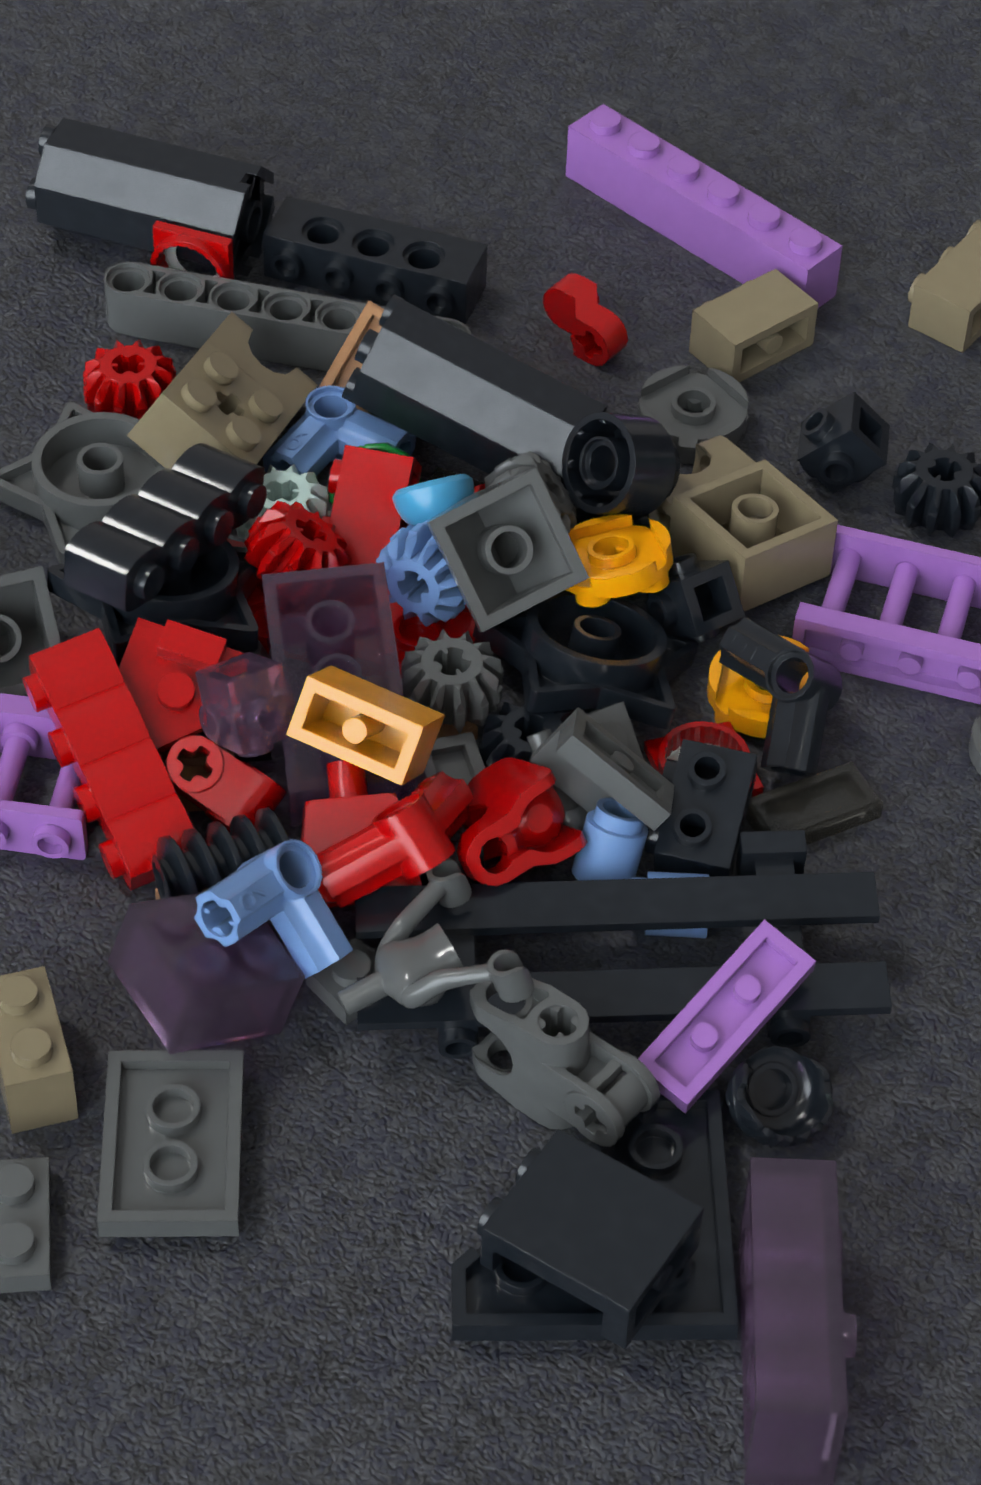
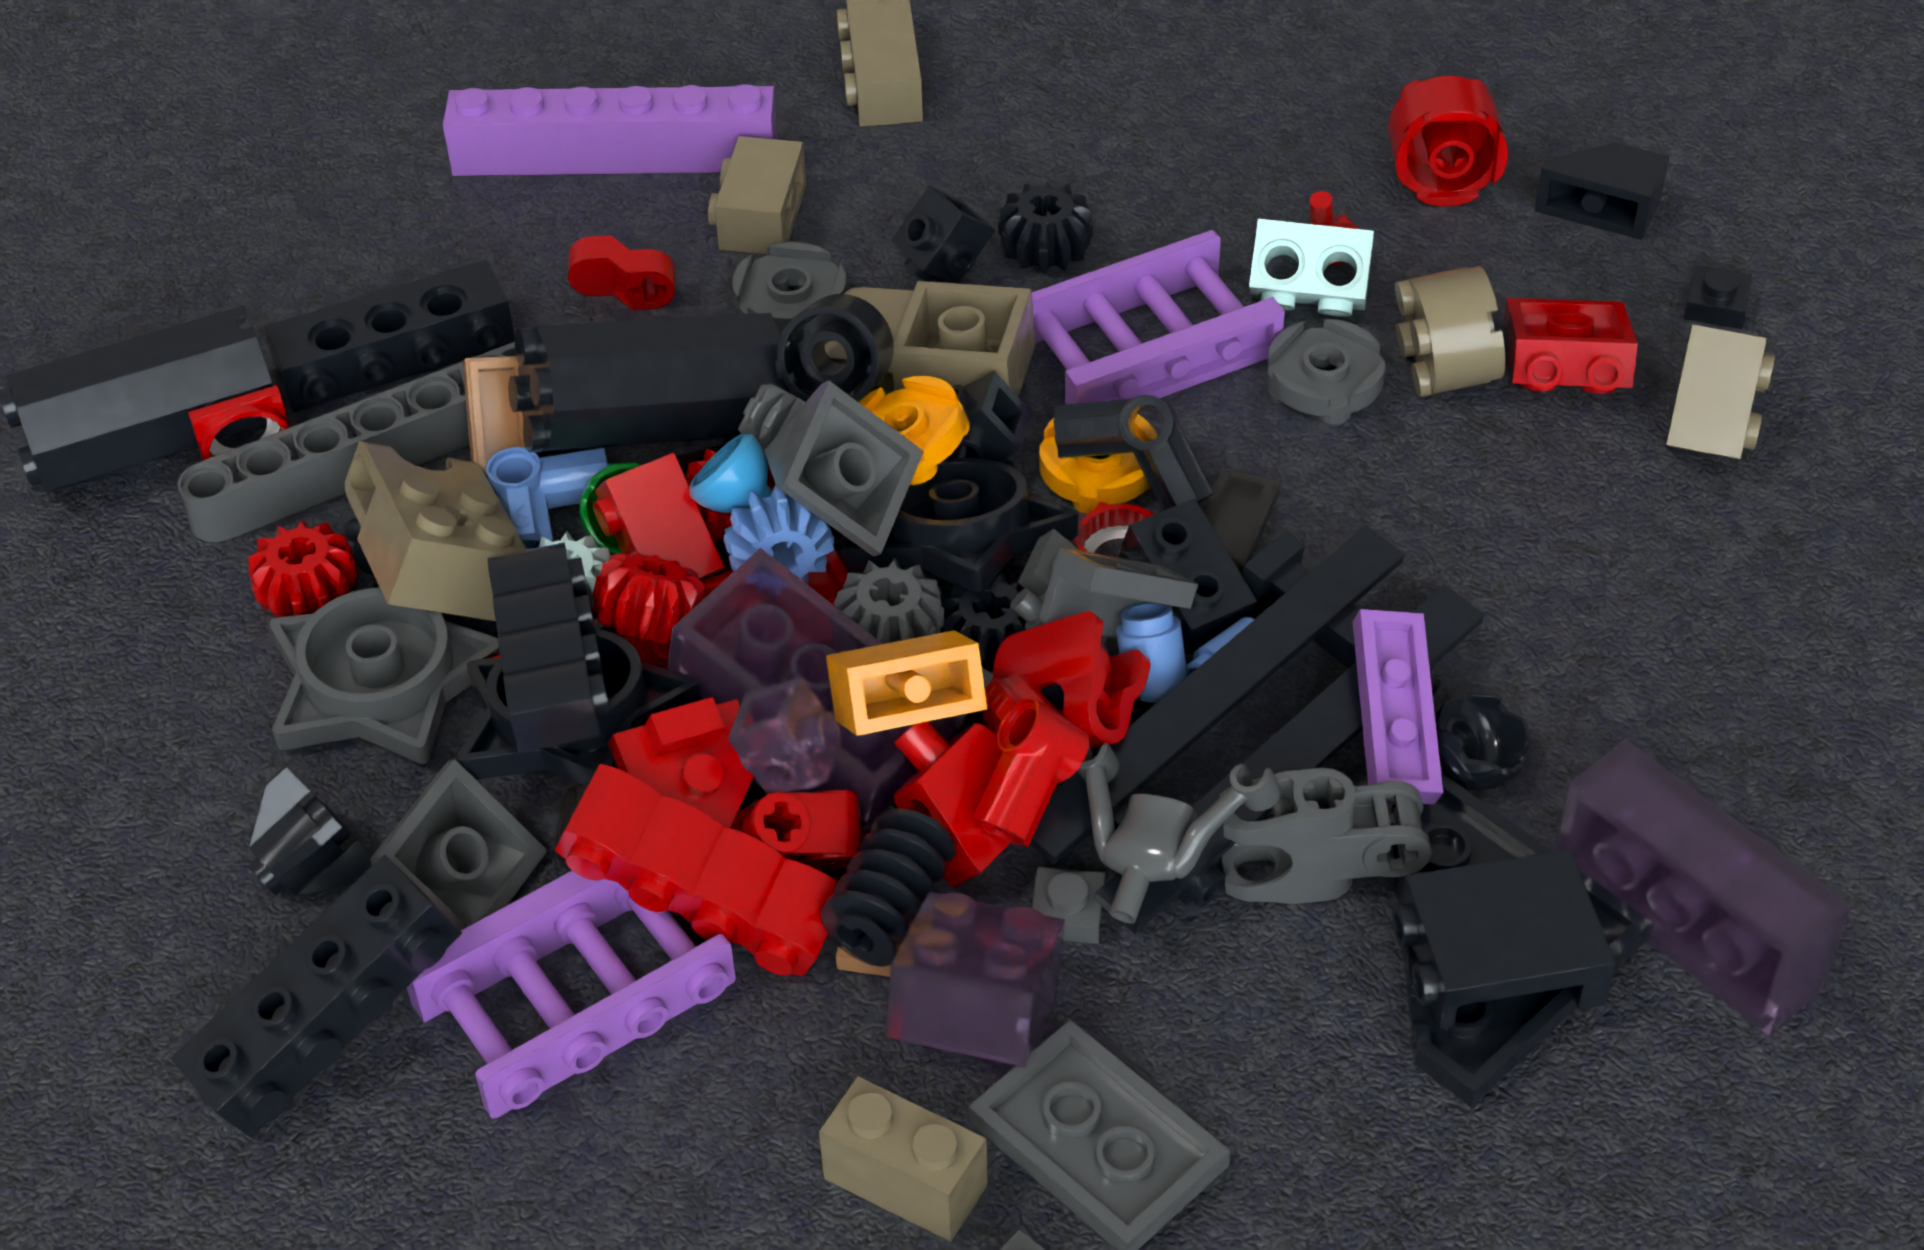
camera: 40 degrees left, 0 degrees up
(280, 888) = (998, 874): medium blue piece -> none

